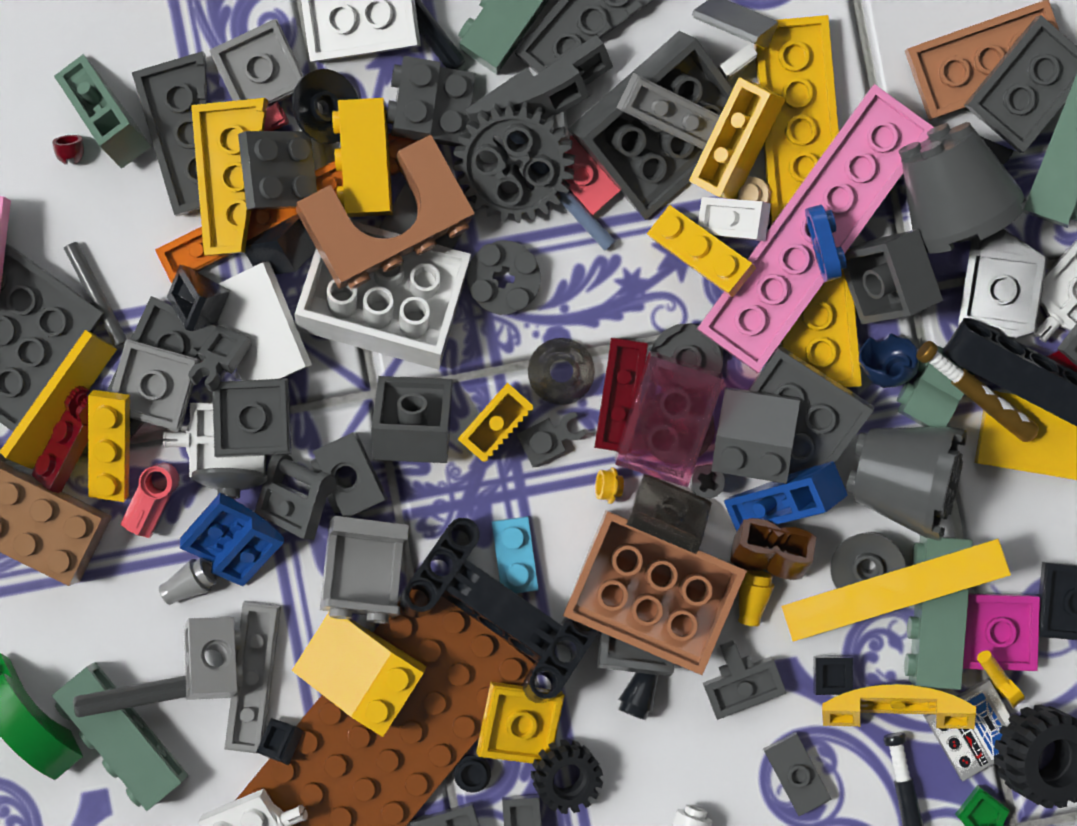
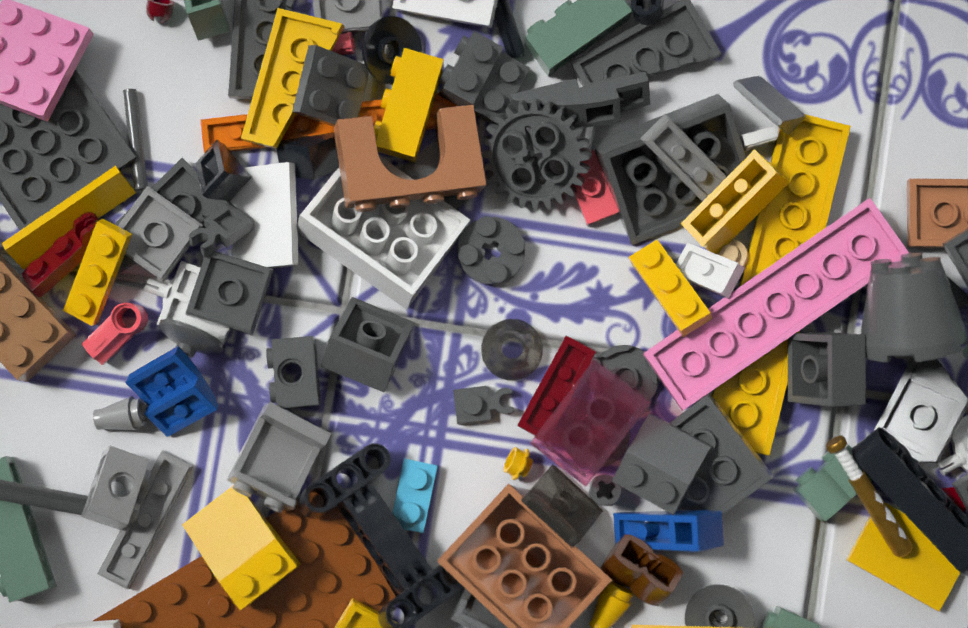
camera: 15 degrees right, 5 degrees down
(279, 741) = (148, 584): black tile -> none
(289, 507) = (233, 381): dark grey plate -> none
(495, 422) = (439, 372): yellow brick -> none
(574, 206) = (574, 211): sand blue bar -> none
(829, 257) = (779, 332): blue plate -> none
(889, 361) = (801, 442): dark blue hair -> none
(909, 475) = (784, 548): dark grey cone -> none

